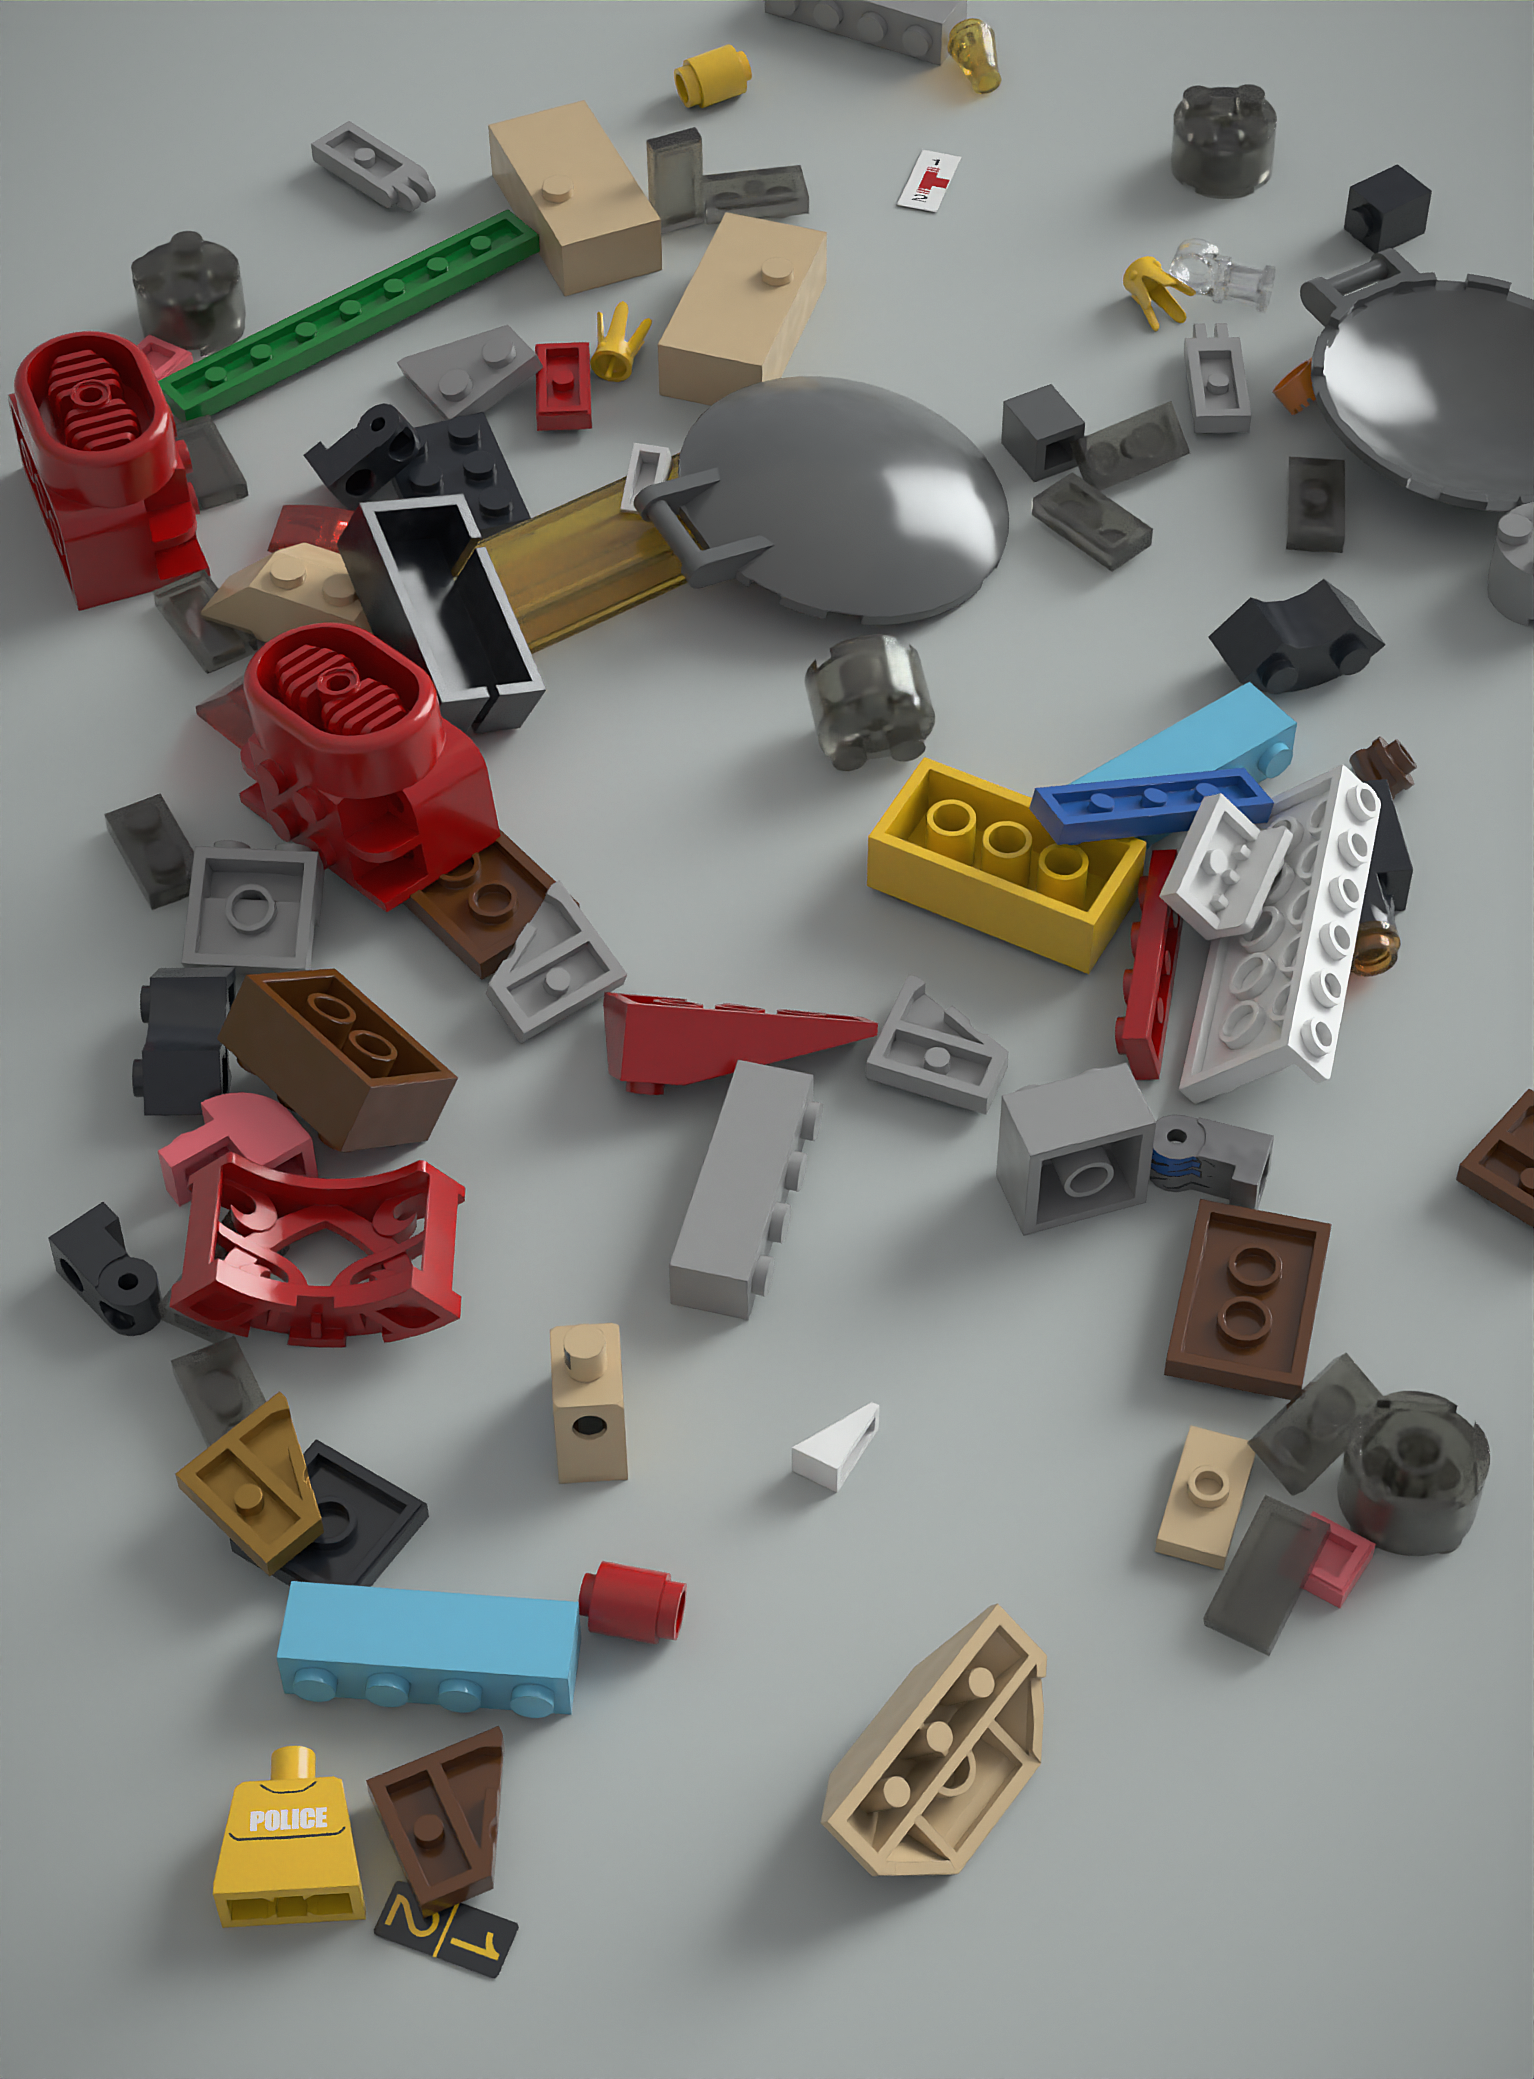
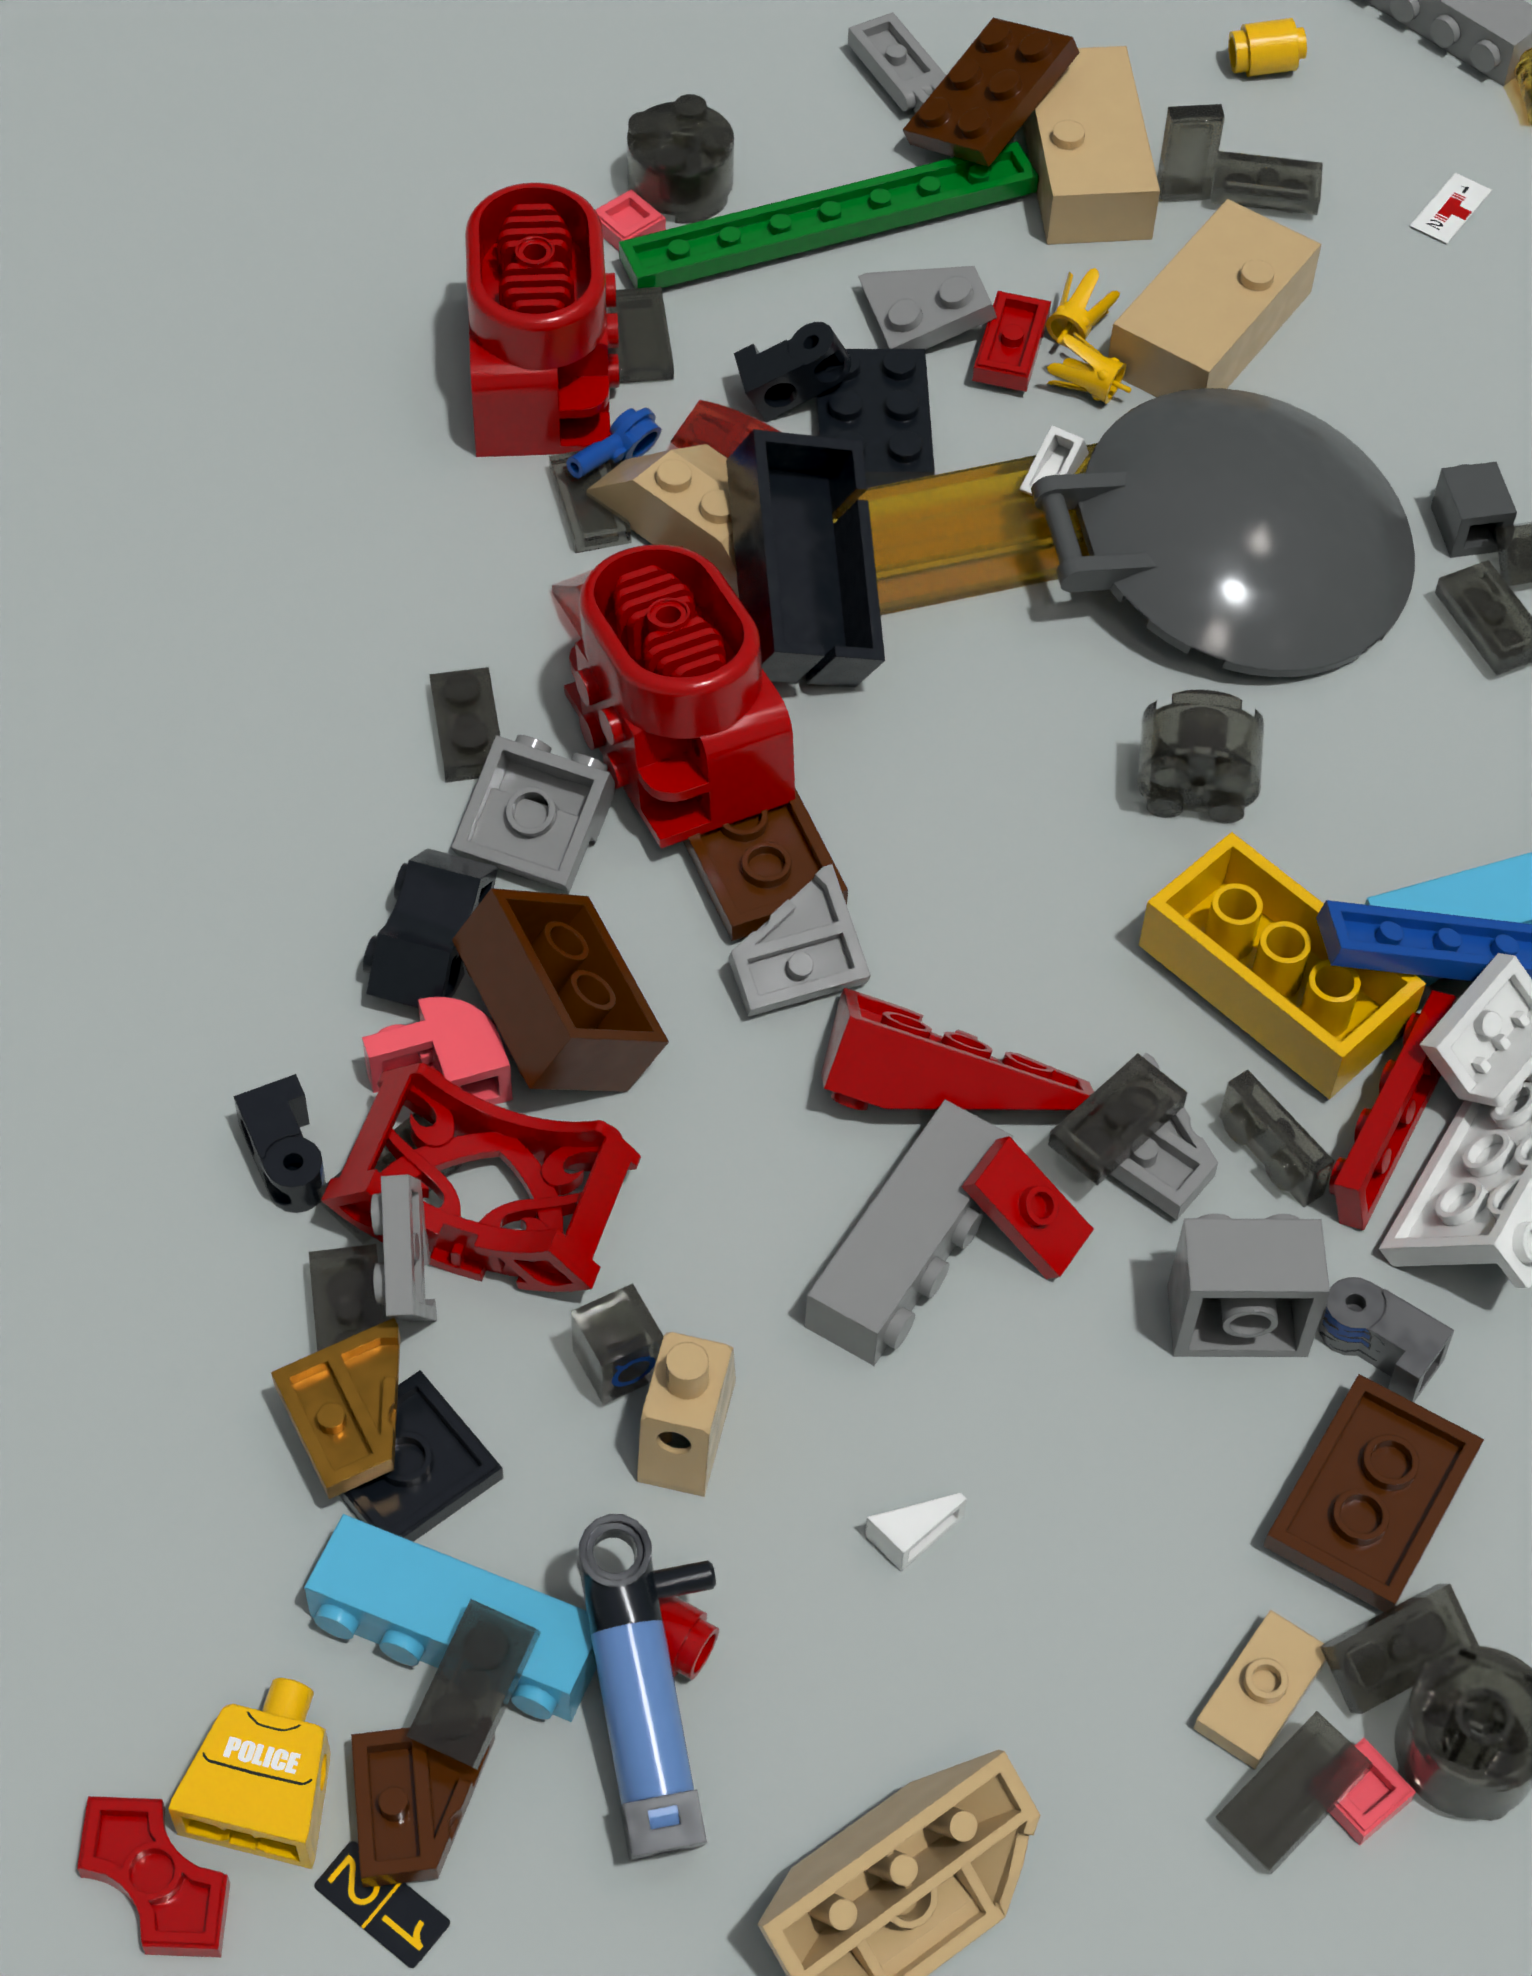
camera: 15 degrees right, 5 degrees up
(225, 553) = (630, 437): none -> blue plate
(240, 1982) = (176, 1900): none -> red tile
(275, 1350) = (401, 1220): none -> light grey wing
(470, 167) = (991, 91): none -> reddish brown plate
(473, 1695) = (473, 1684): none -> clear smoke plate
(502, 1358) = (616, 1342): none -> clear smoke brick
(658, 402) = (1099, 377): none -> yellow piece
(684, 1752) = (639, 1688): none -> piece
(847, 1136) = (1027, 1207): none -> red plate
(904, 1035) = (1117, 1119): none -> clear smoke plate
(1053, 1017) = (1275, 1138): none -> clear smoke plate

